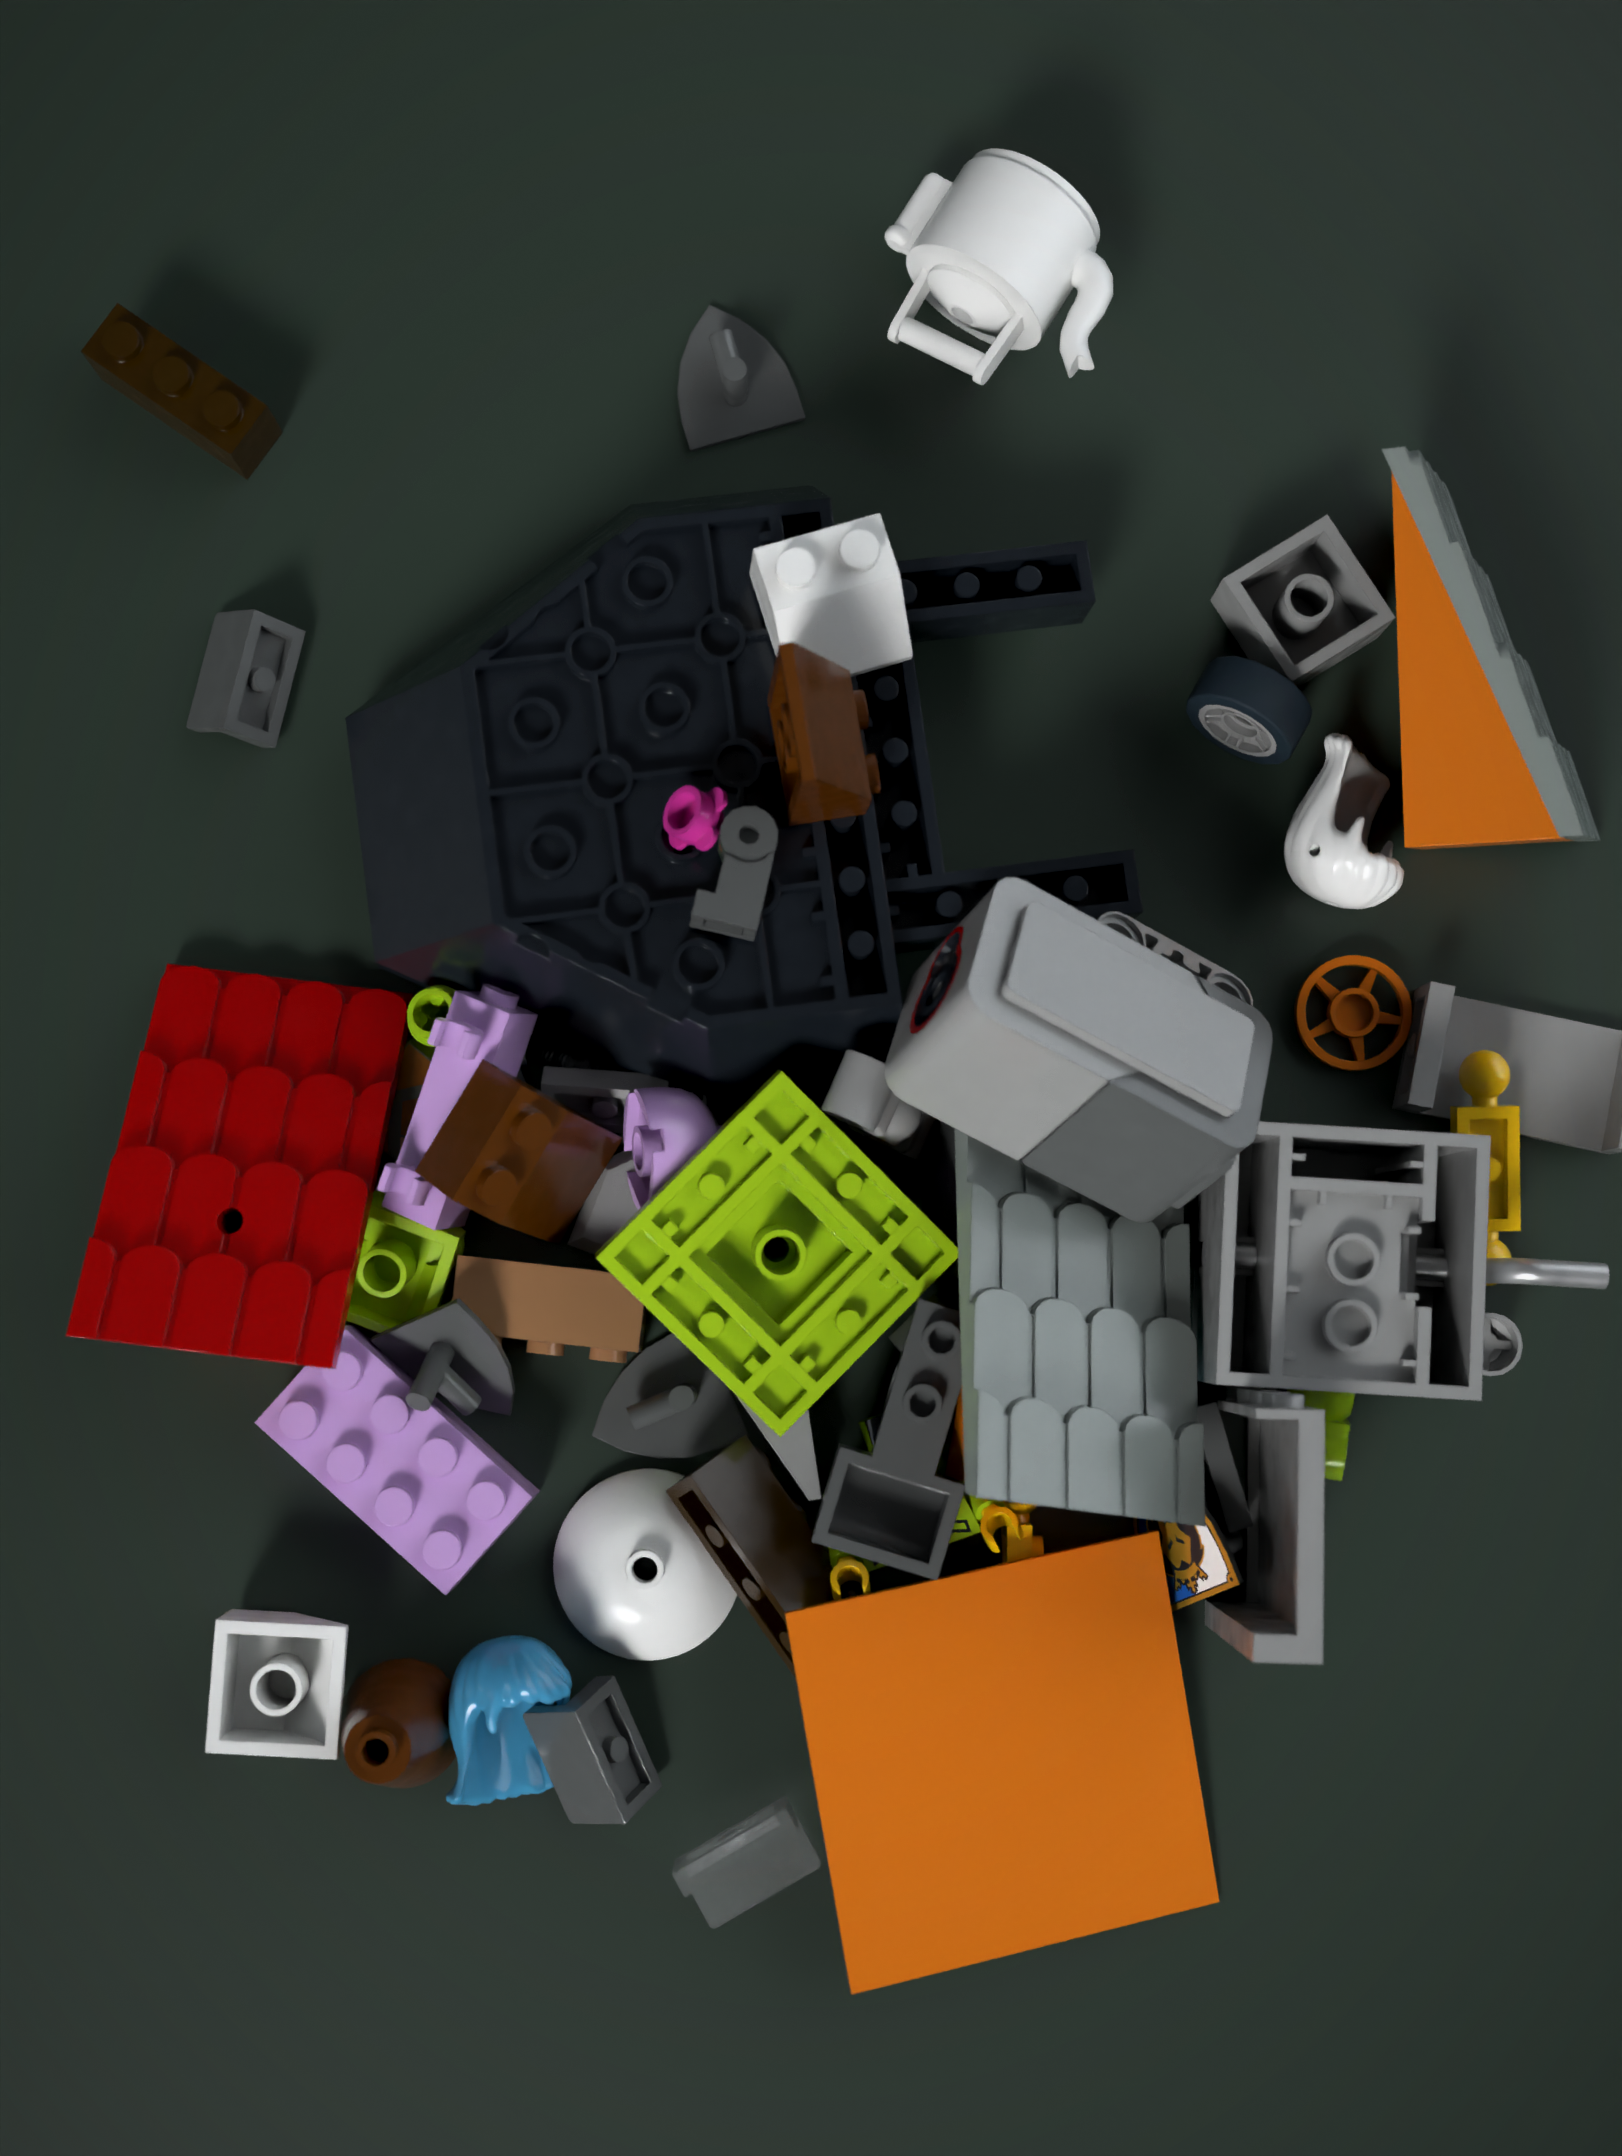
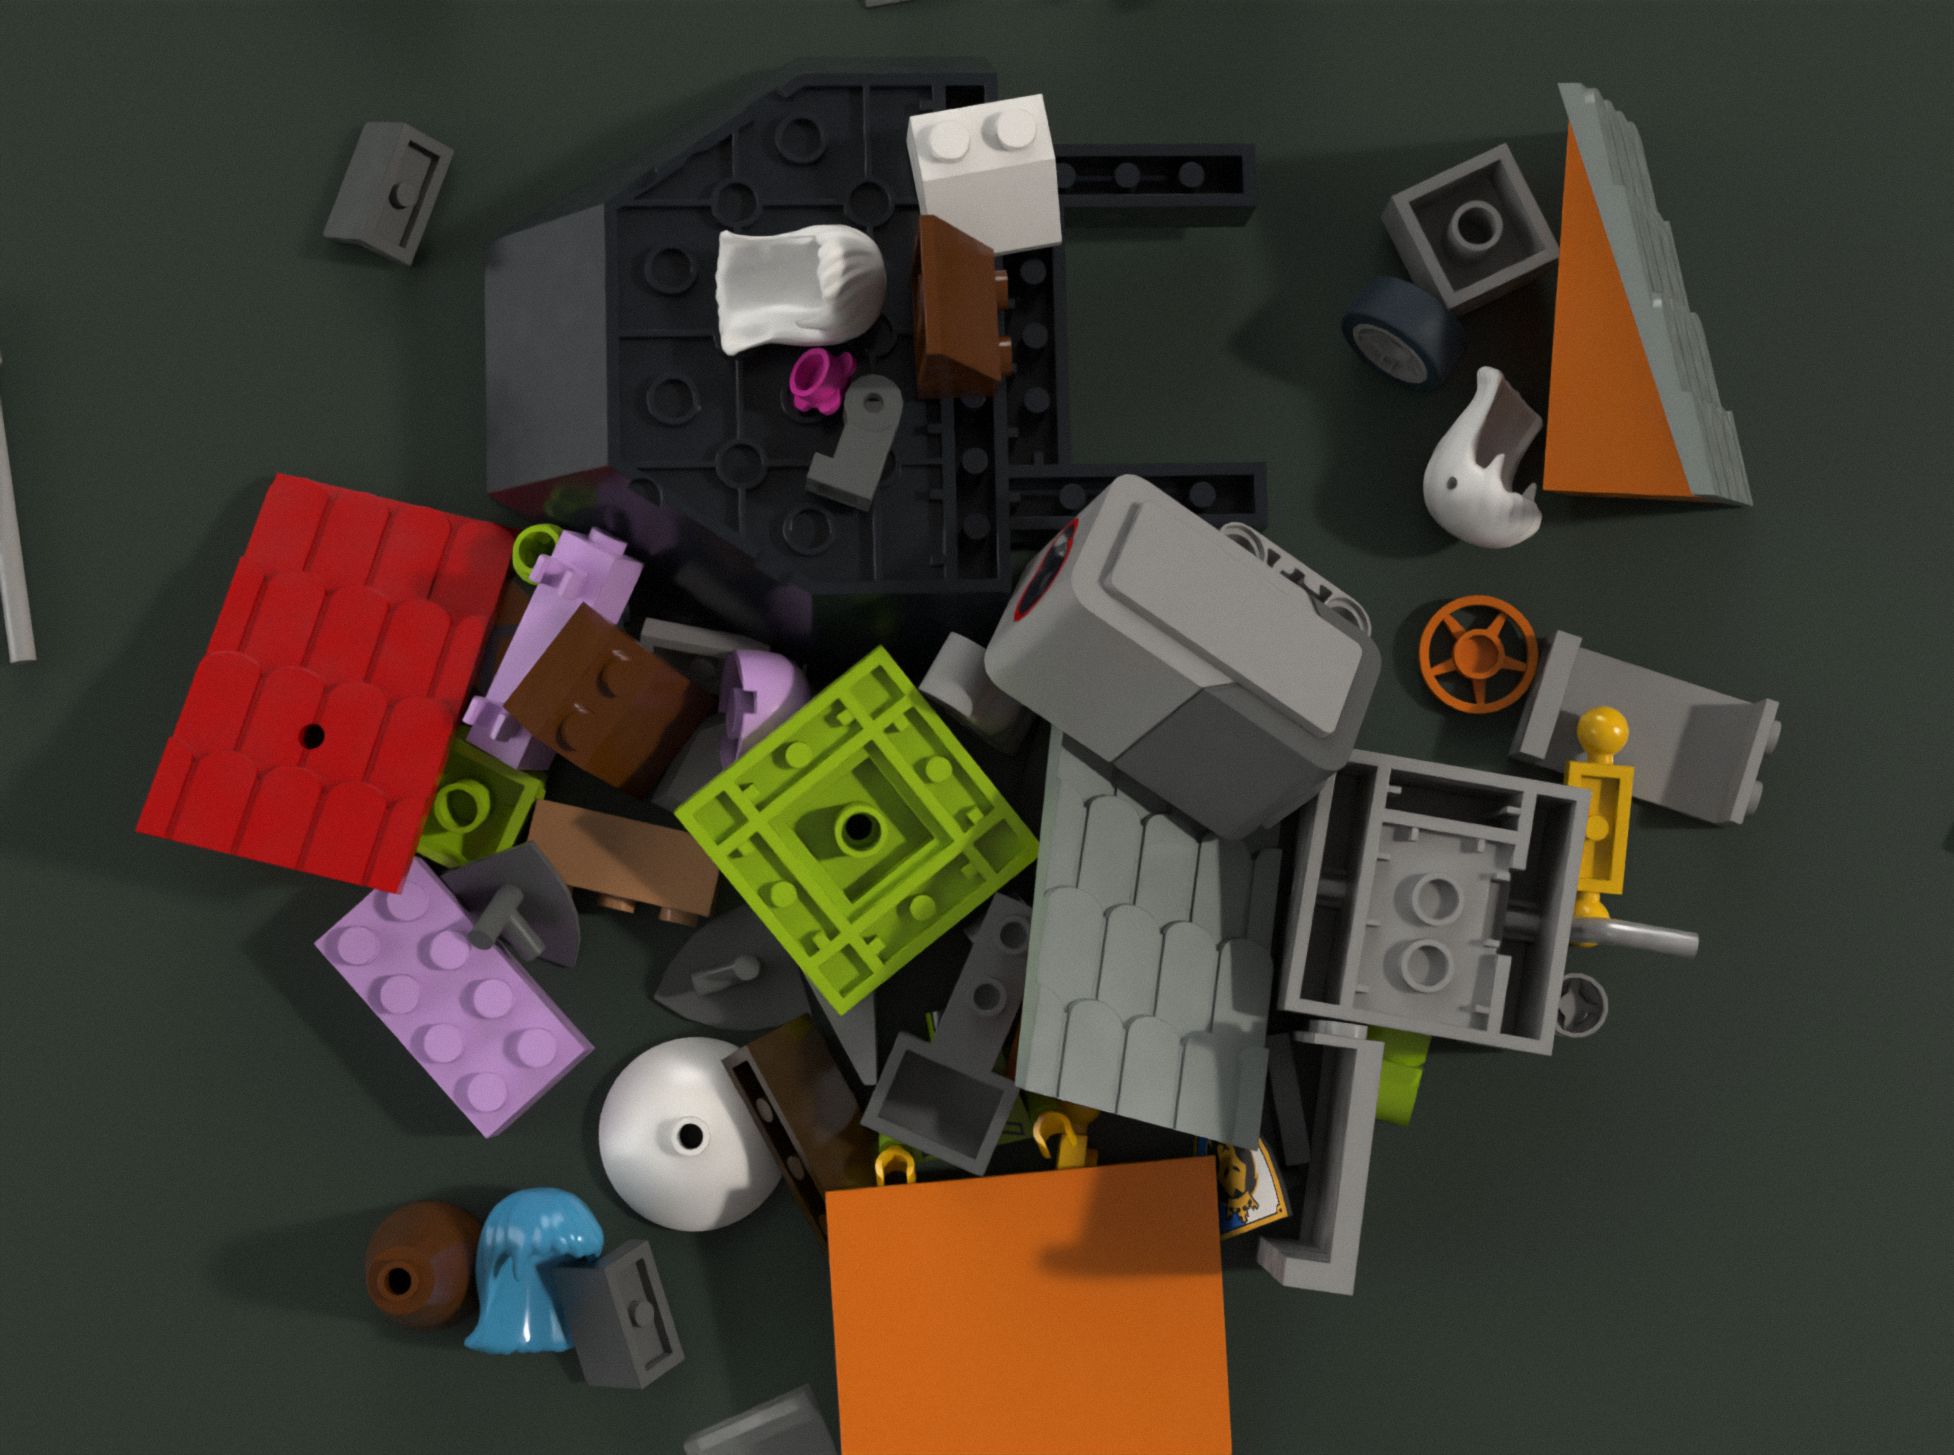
camera: 10 degrees right, 0 degrees up
(276, 1685) = (306, 1210): white slope -> none
(661, 728) = (798, 287): none -> white piece

